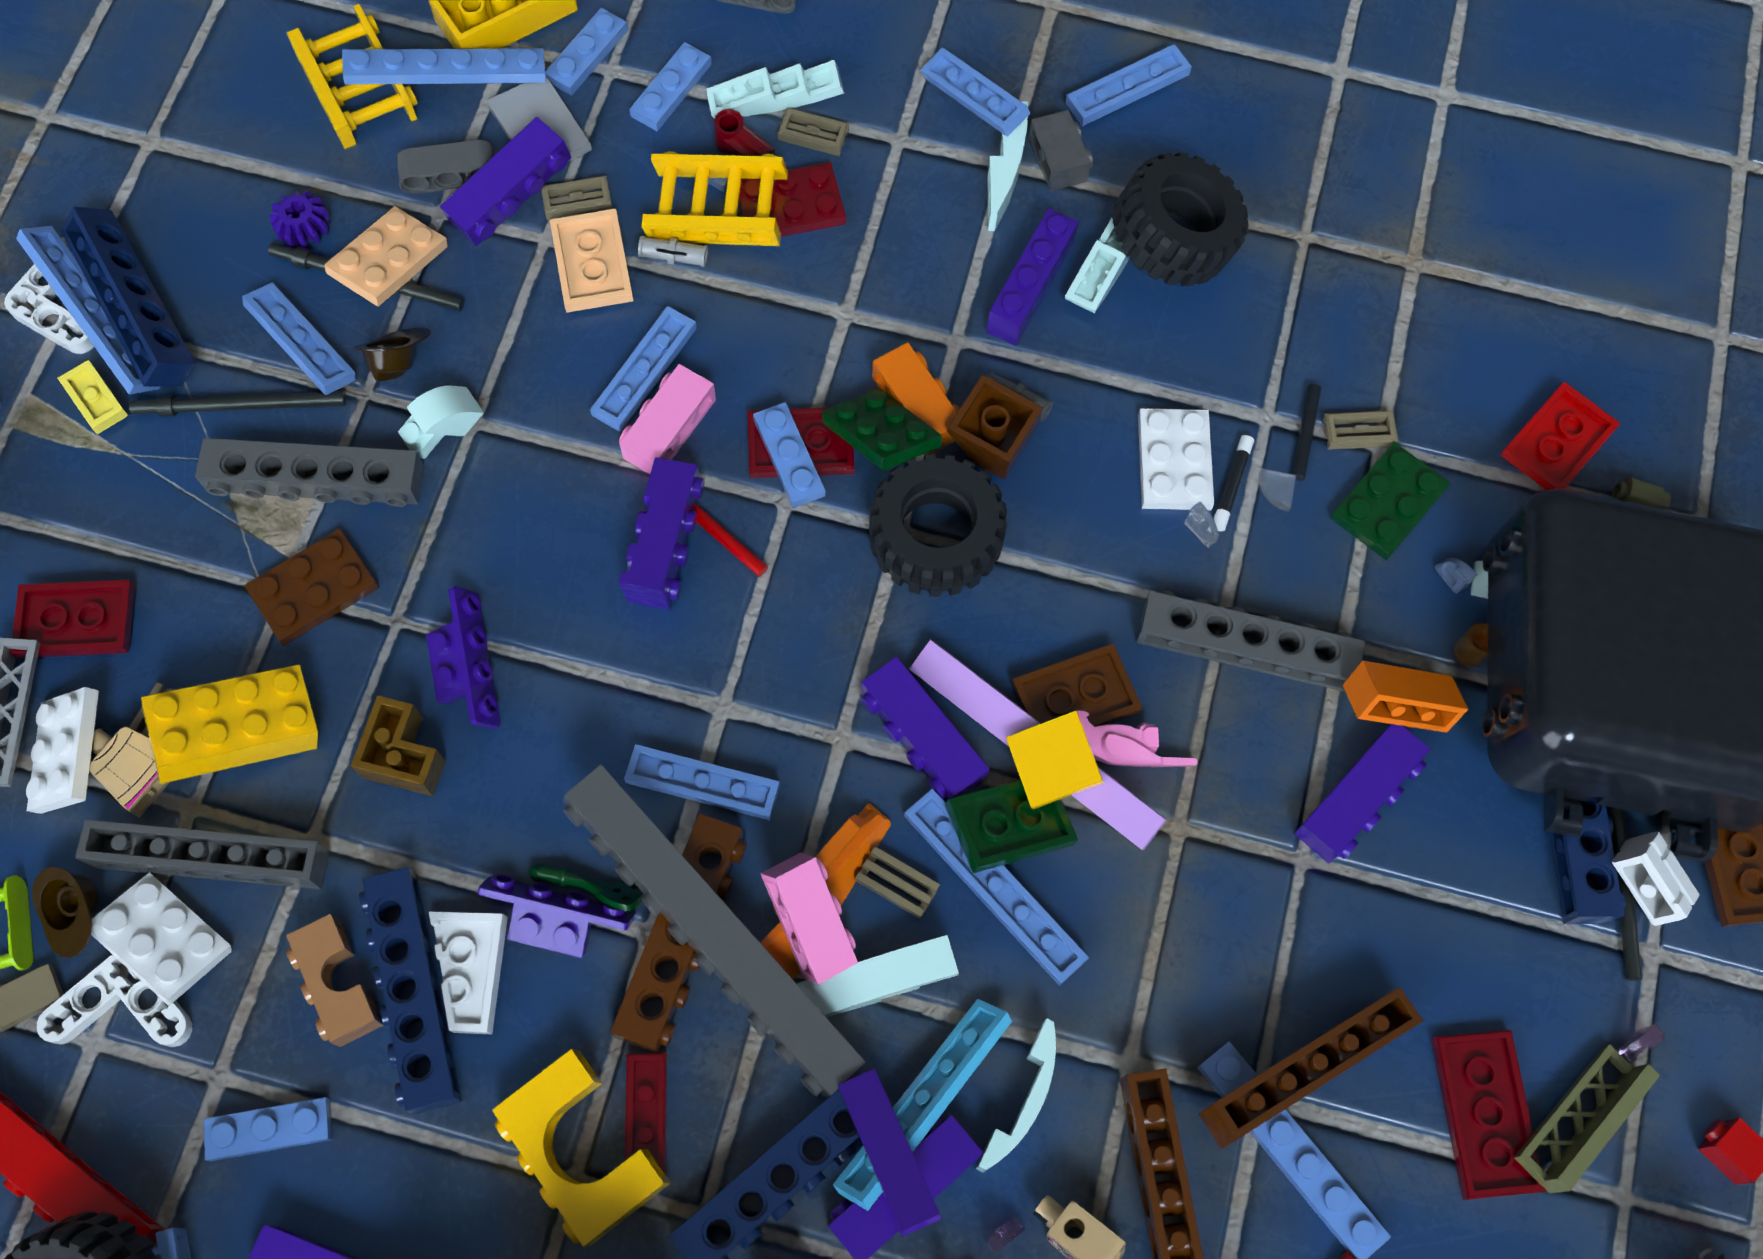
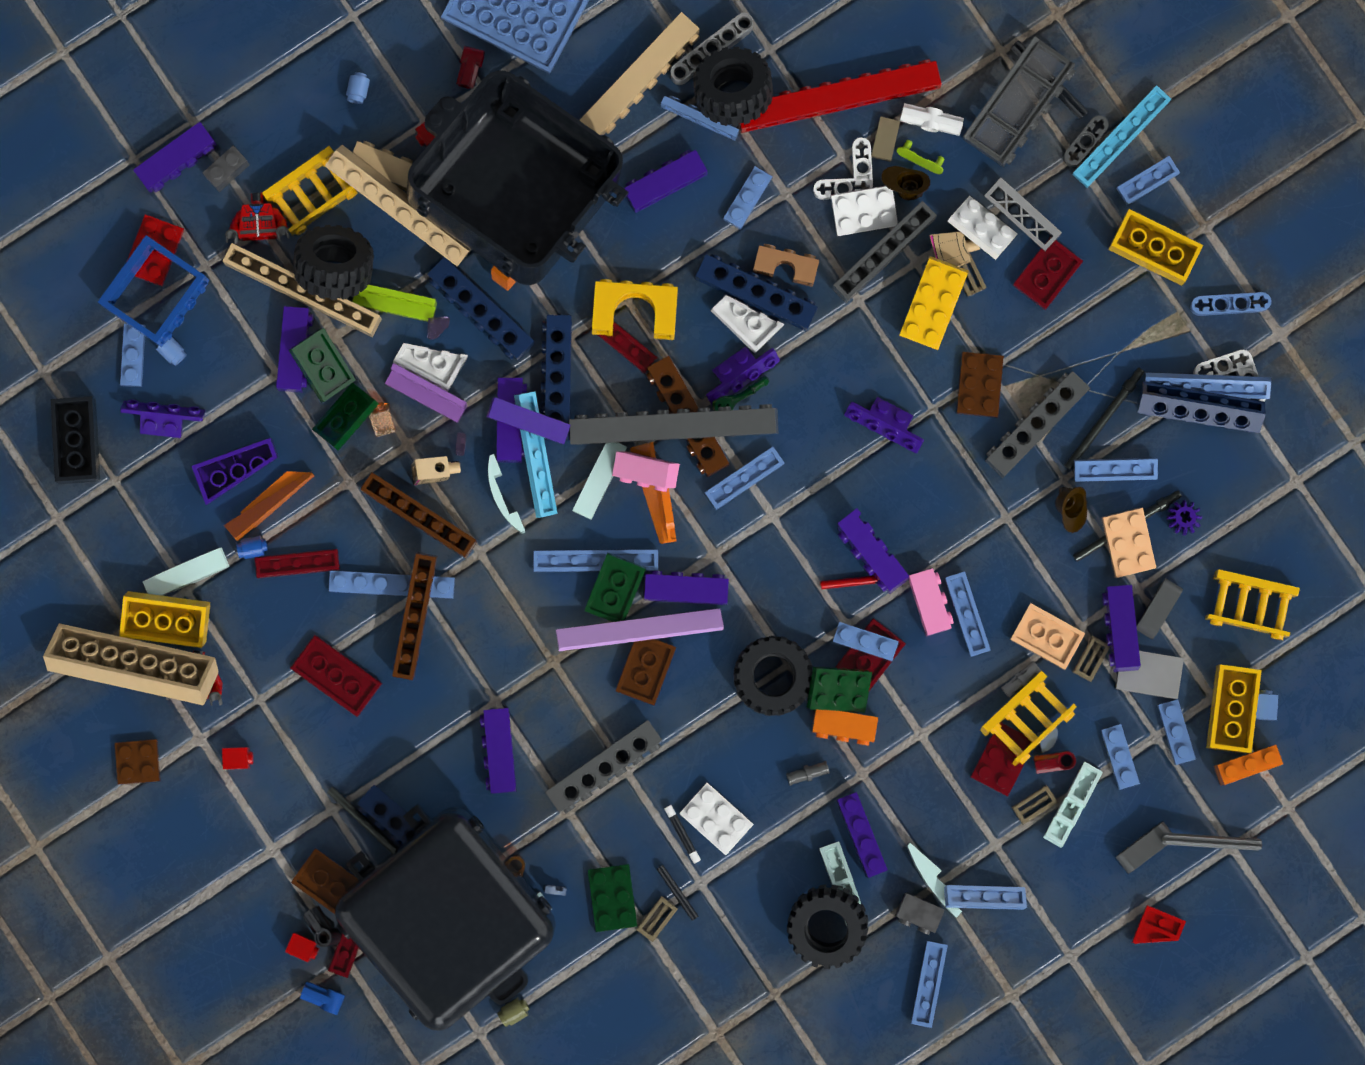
camera: 130 degrees right, 15 degrees up
(92, 397) = (1160, 356): light yellow plate -> none
(389, 751) = (865, 357): pearl gold brick -> none
(439, 413) = (1016, 500): light aqua brick -> none
(443, 66) = (1214, 649): medium blue plate -> none
(869, 865) = (649, 517): dark tan tile -> none
(994, 426) = (799, 744): reddish brown slope -> none
(1054, 760) = (623, 627): yellow tile -> none
(1128, 745) = (608, 666): bright pink animal -> none
(1202, 524) = (673, 798): clear tile -> none
(1277, 487) = (662, 852): clear tile -> none
(1404, 697) = (521, 803): orange brick -> none
(1560, 438) = (572, 1005): red plate -> none
(1599, 1127) = (293, 710): olive fence -> none
(1644, 1037) = (306, 762): clear purple tile -> none
(1655, 878) = (359, 833): white brick -> none

